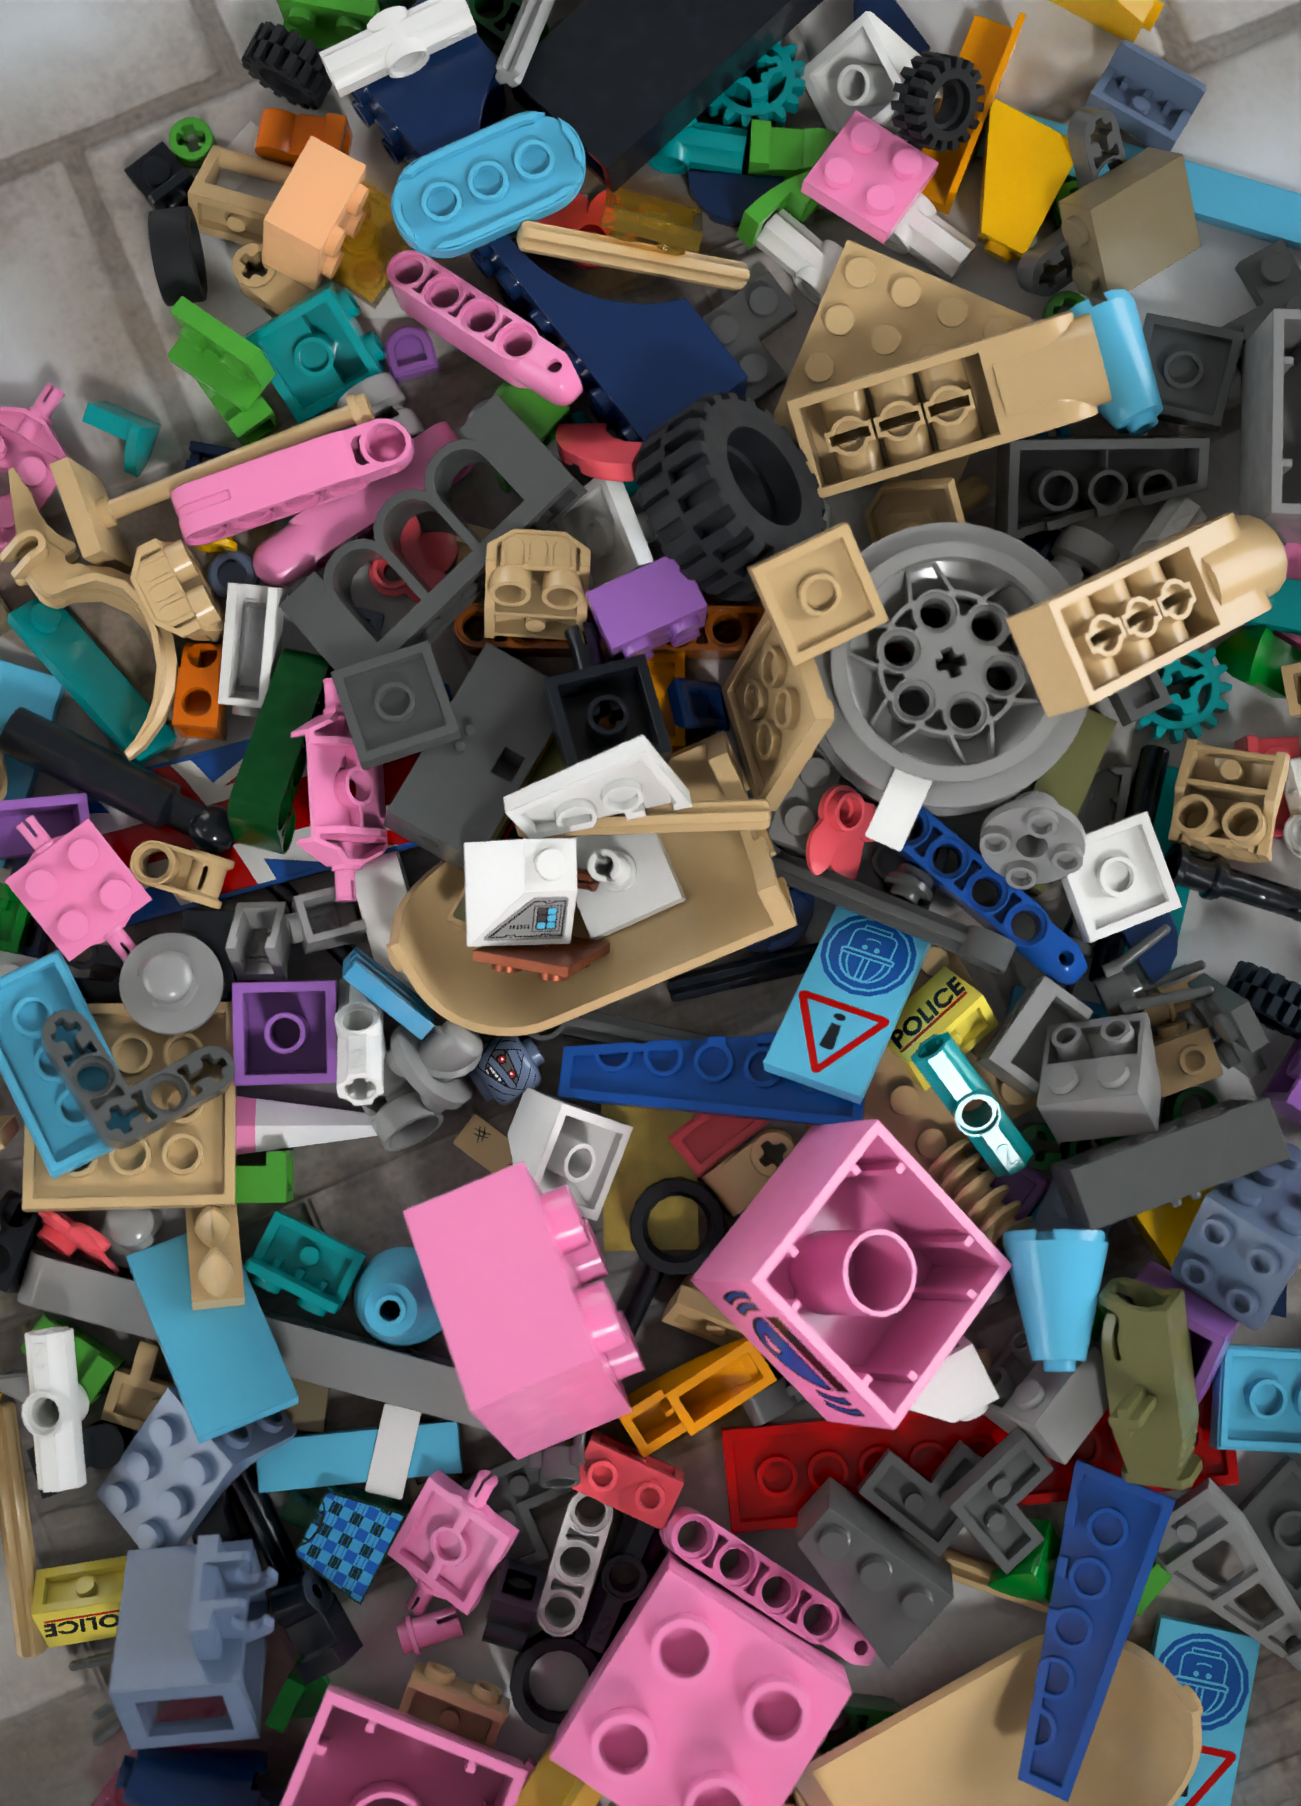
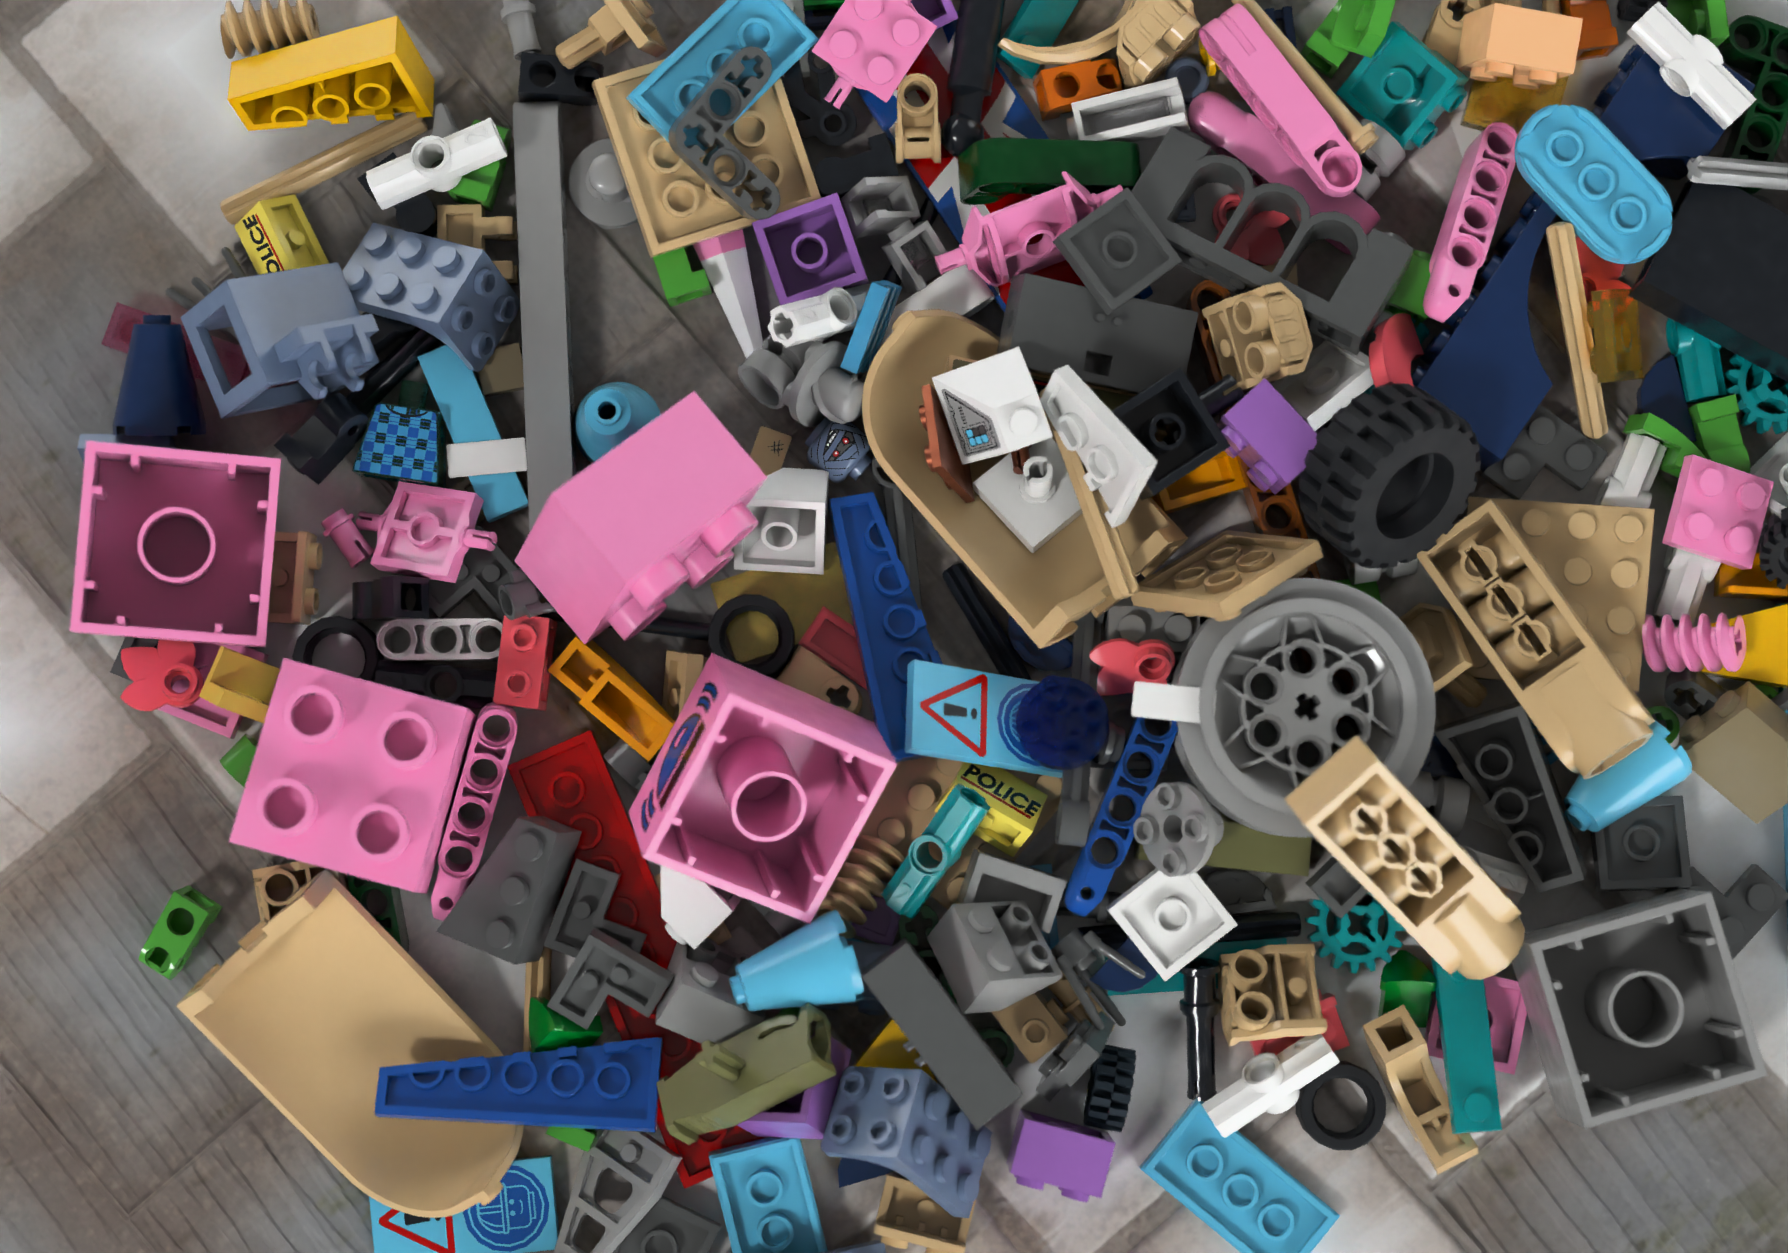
camera: 70 degrees right, 0 degrees up
(67, 1236) = (580, 128): coral plate -> none
(171, 983) = (820, 142): light grey plate -> none
(214, 1257) = (602, 254): tan tile -> none
(217, 1356) = (541, 271): medium azure tile -> none
(297, 1700) = (256, 440): green tile -> none
(305, 1264) = (619, 333): teal bracket -> none
(410, 354) = (1430, 168): medium lavender tile -> none
(698, 705) = (1204, 511): dark blue tile -> none
(818, 594) = (1326, 571): tan tile -> none
(878, 926) = (1062, 723): none -> clear blue tile
(1001, 245) = (1694, 646): none -> bright pink piece

